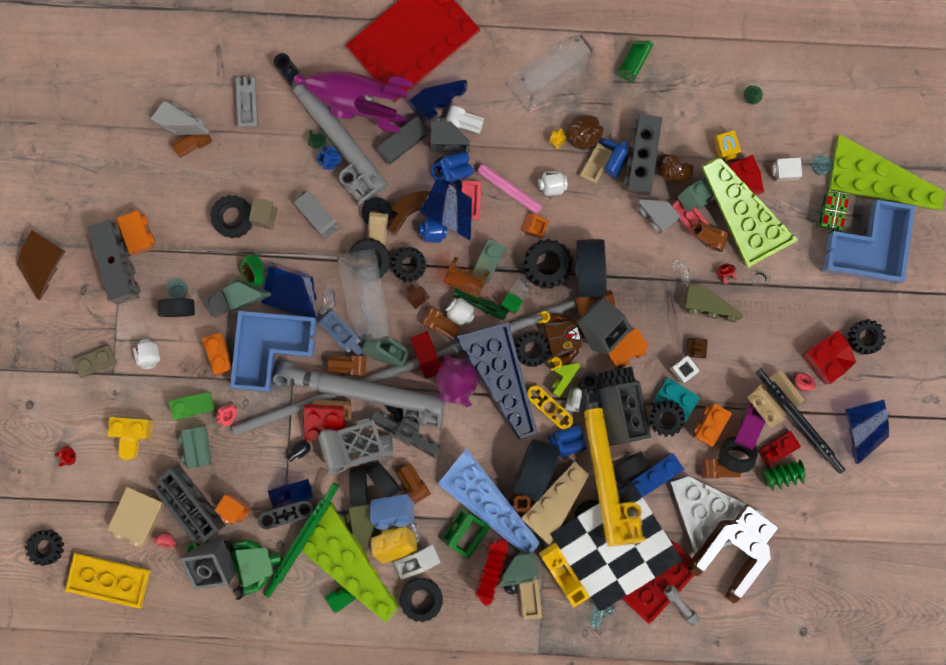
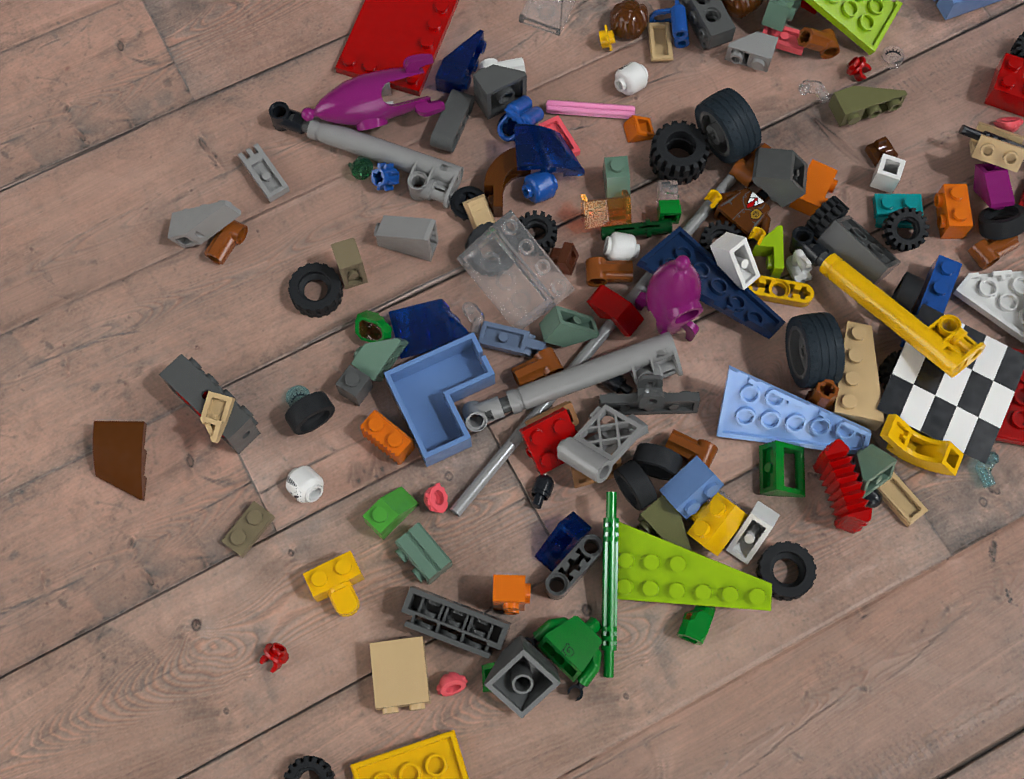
camera: 30 degrees left, 15 degrees down
(108, 279) = (216, 414): none -> tan slope
(136, 232) = (218, 361): orange brick -> none
(527, 372) = (735, 259): none -> white slope
(568, 440) = (825, 302): blue piece -> none

